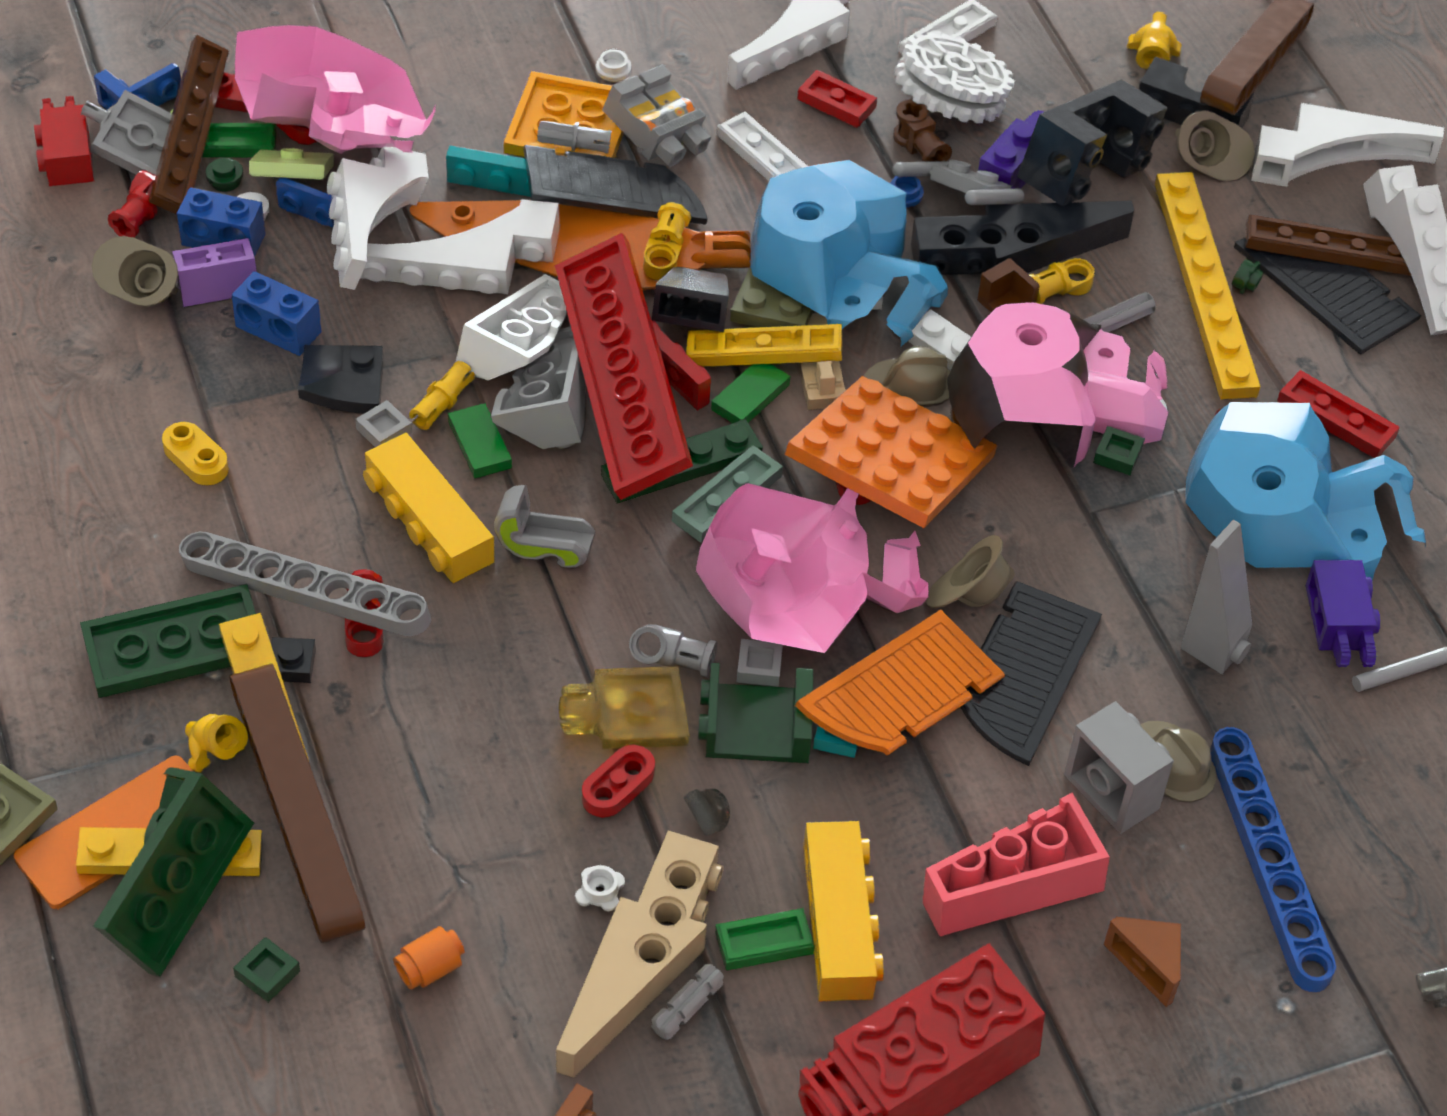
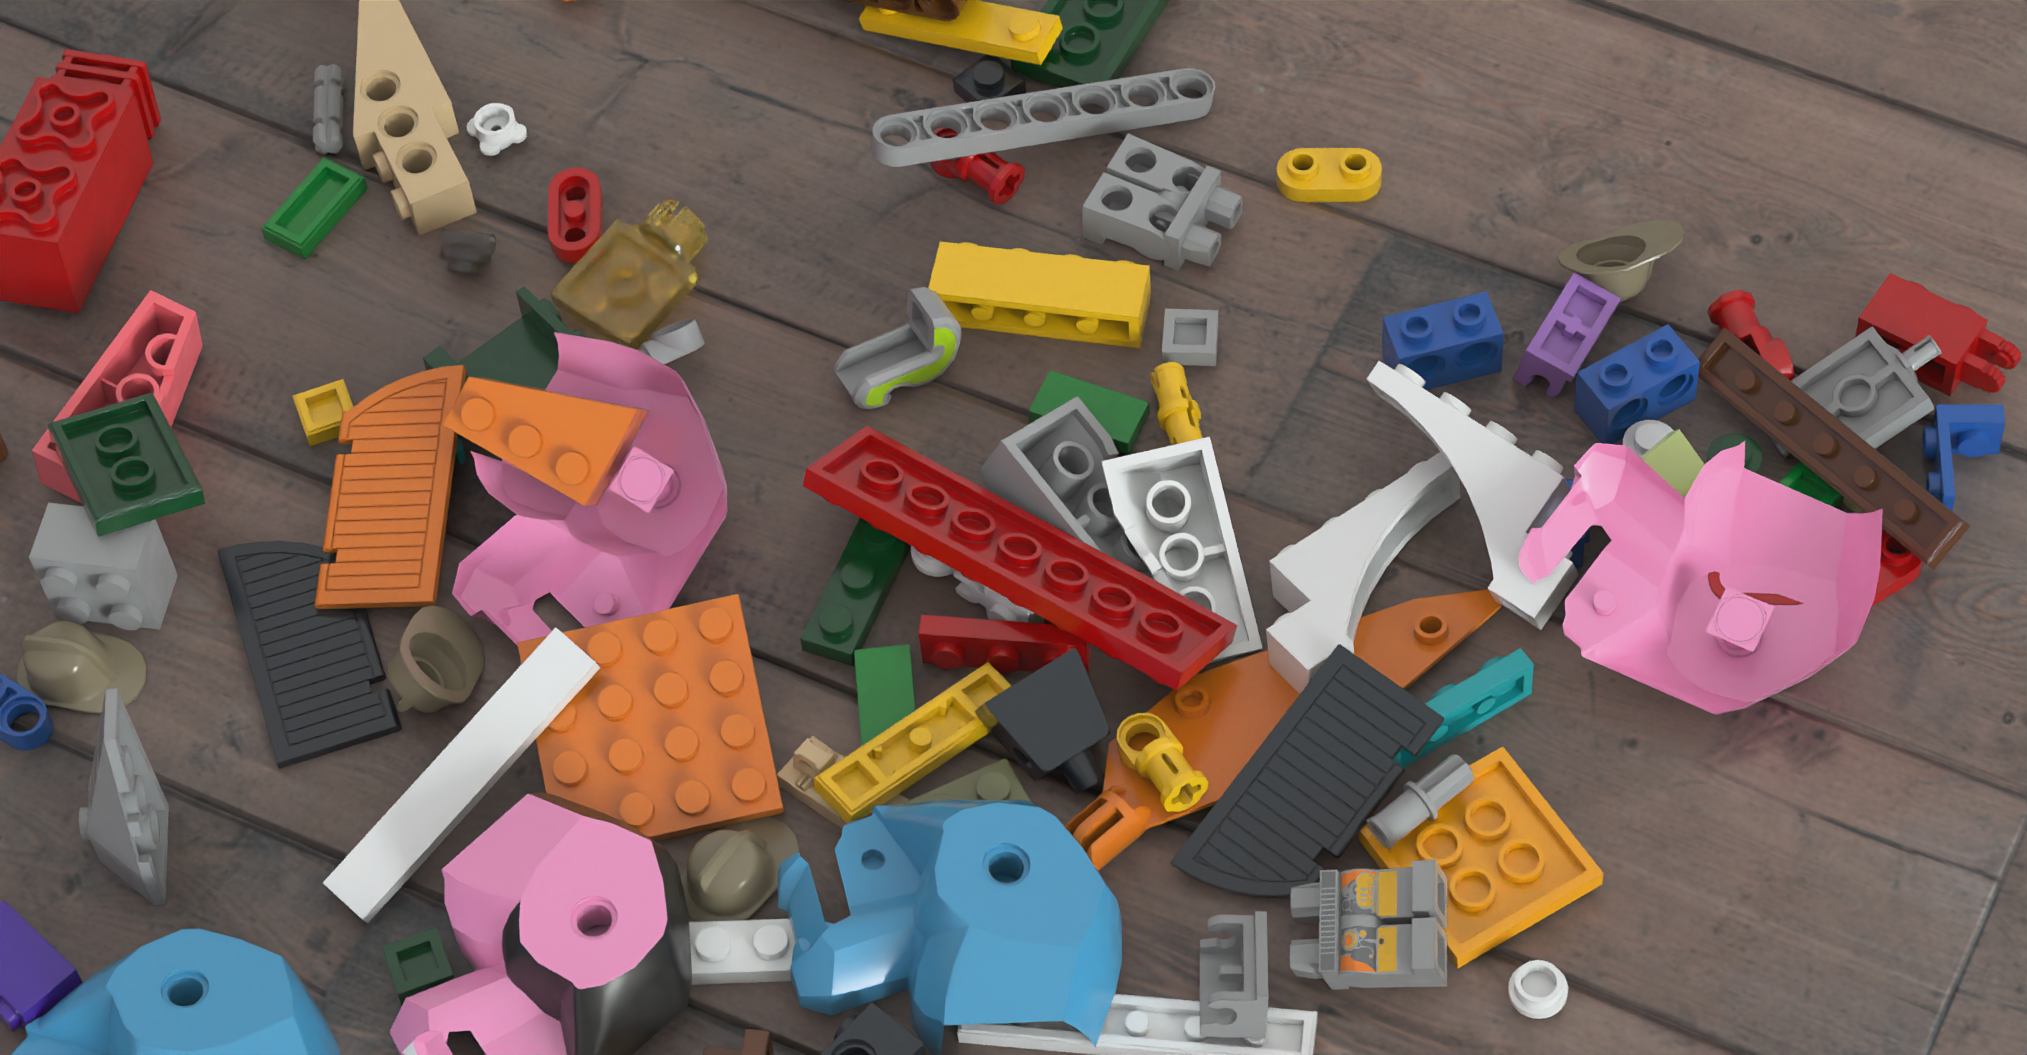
camera: 145 degrees right, 5 degrees up
(302, 485) = (1160, 205): none -> light grey hips
(342, 377) = (1301, 353): black plate -> none
(701, 507) = (778, 558): sand green plate -> none
(740, 148) = (1234, 977): none -> light grey hinge
(797, 607) = (548, 434): none -> orange wedge
(840, 911) = (263, 265): yellow brick -> none
(887, 793) = (322, 411): none -> yellow tile
(1016, 492) = (461, 775): none -> white tile
(1064, 776) = (126, 464): none -> dark green tile

